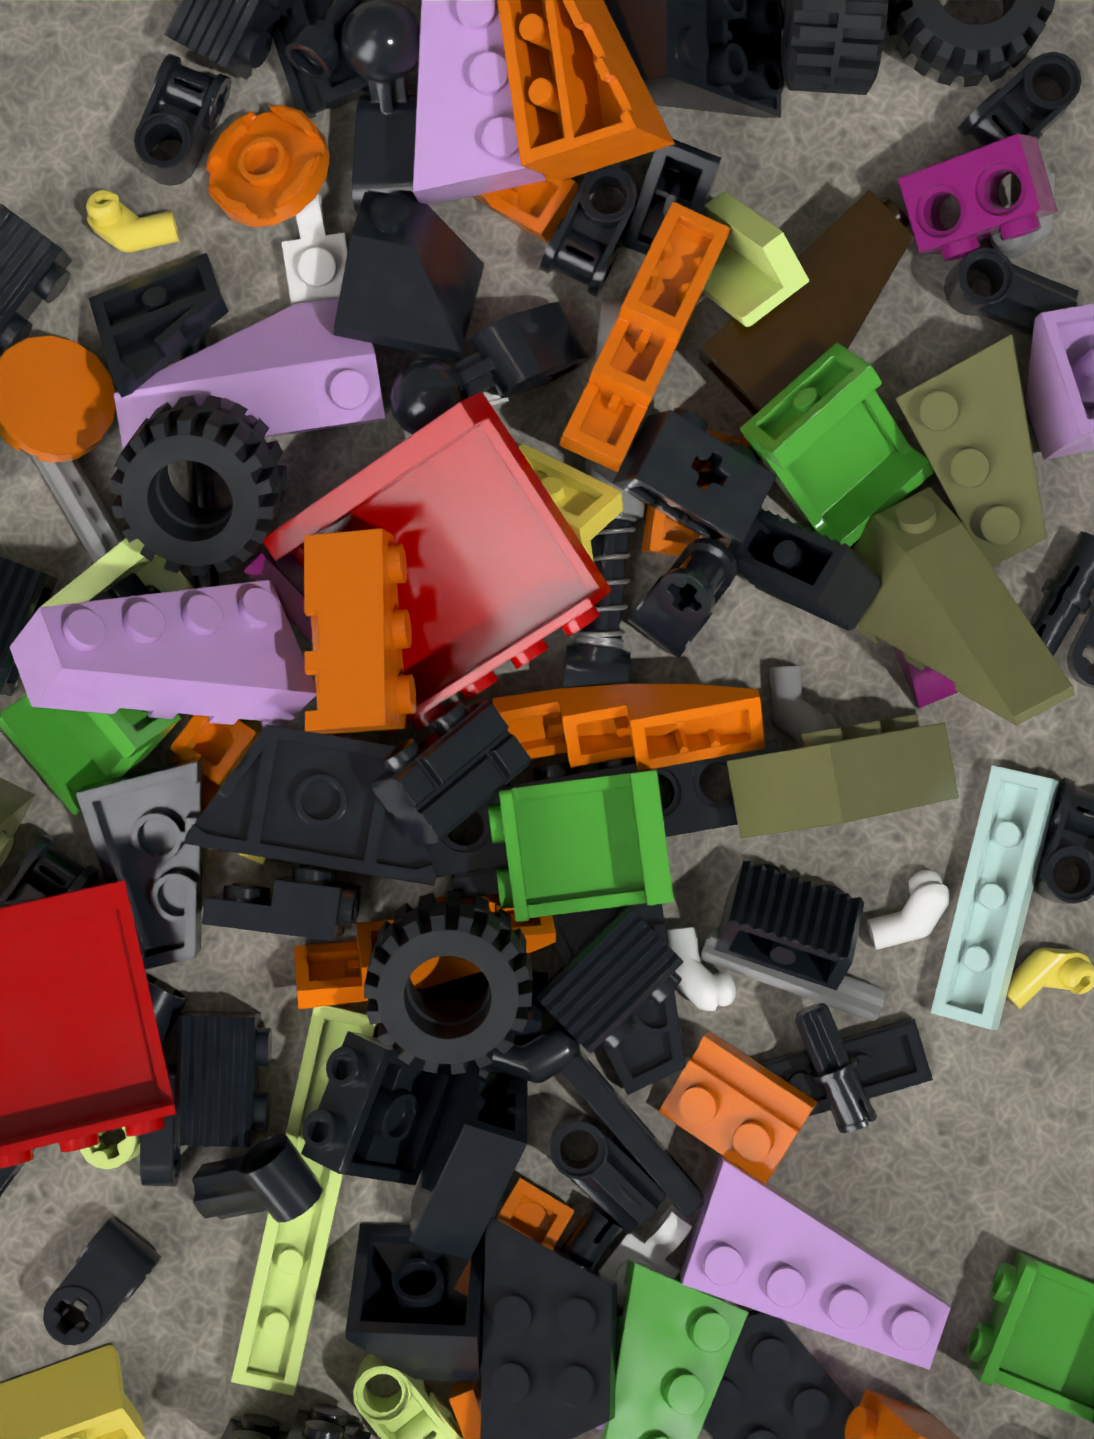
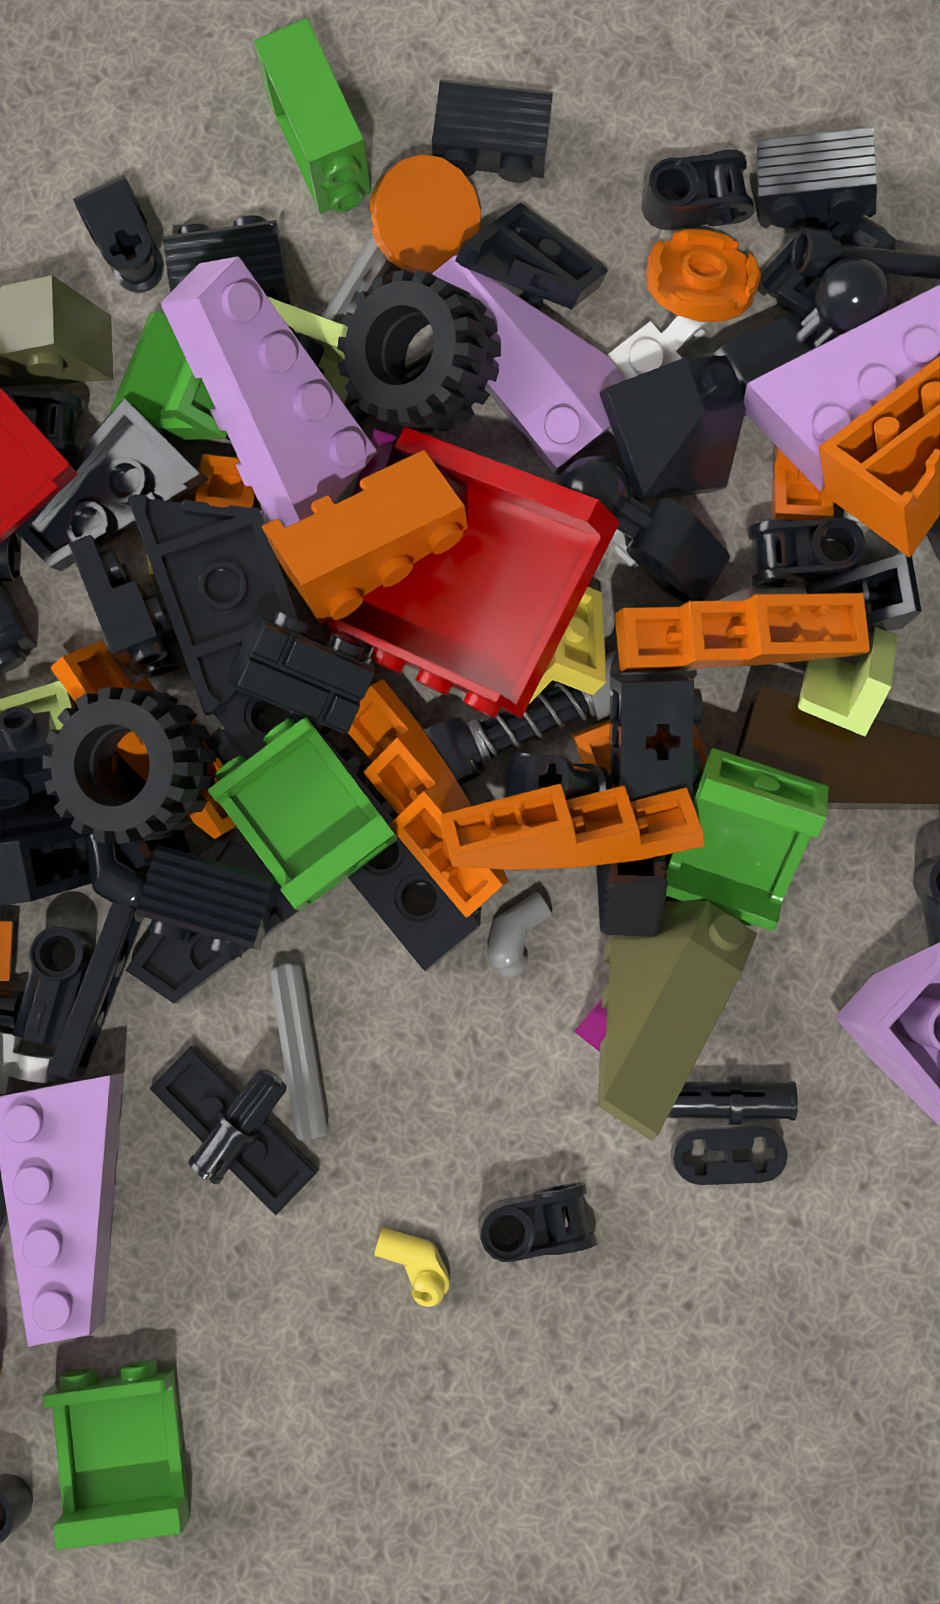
camera: 65 degrees right, 5 degrees down
(124, 228) = (590, 201): light yellow arm -> none
(698, 983) = (250, 970): white arm -> none
(737, 1107) = (164, 1066): orange plate -> none
(752, 595) = (553, 833): none -> orange slope
(790, 924) = (336, 1023): black brick -> none
(845, 778) = (477, 996): olive wedge -> none
(919, 915) = (407, 1126): white arm -> none
(981, 448) = (812, 959): olive wedge -> none
(995, 897) = (453, 1181): light aqua plate -> none

